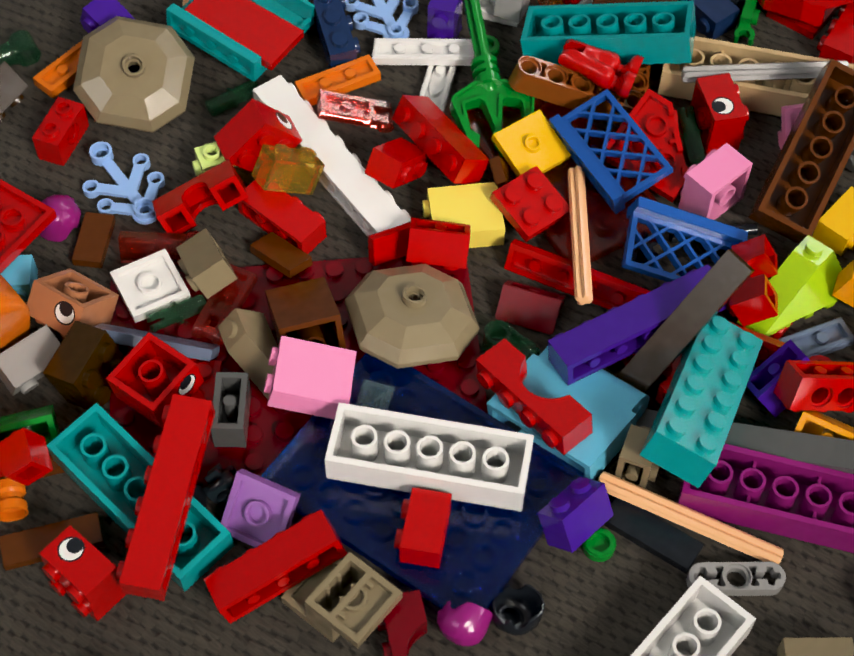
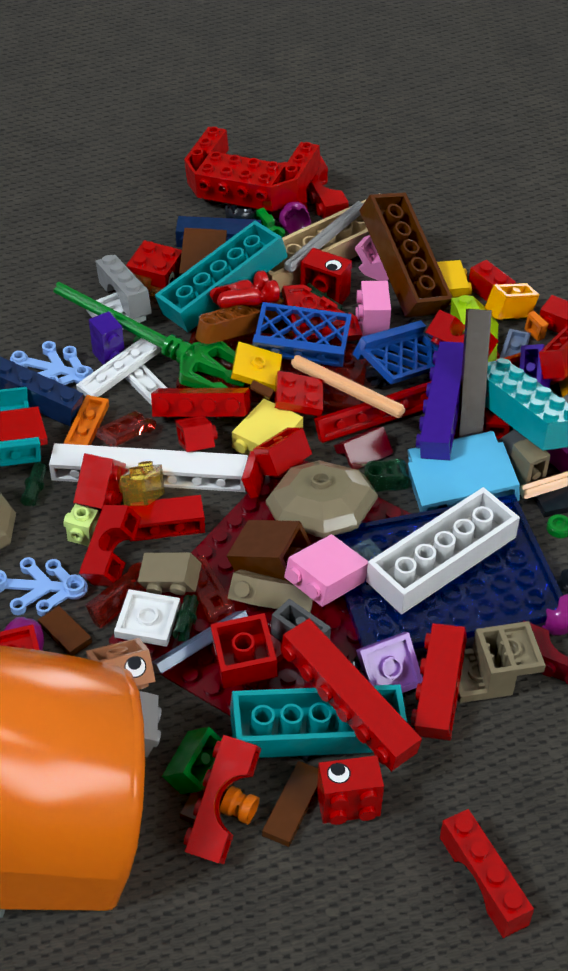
camera: 50 degrees left, 10 degrees down
(83, 364) = (187, 686): dark brown brick -> none
(281, 255) = (195, 537): reddish brown tile -> none
(424, 527) = (488, 586): red brick -> none
(558, 420) = (419, 481): red arch -> none
(575, 514) = (538, 516): dark purple brick -> none
(780, 31) = (294, 217): none -> magenta hair

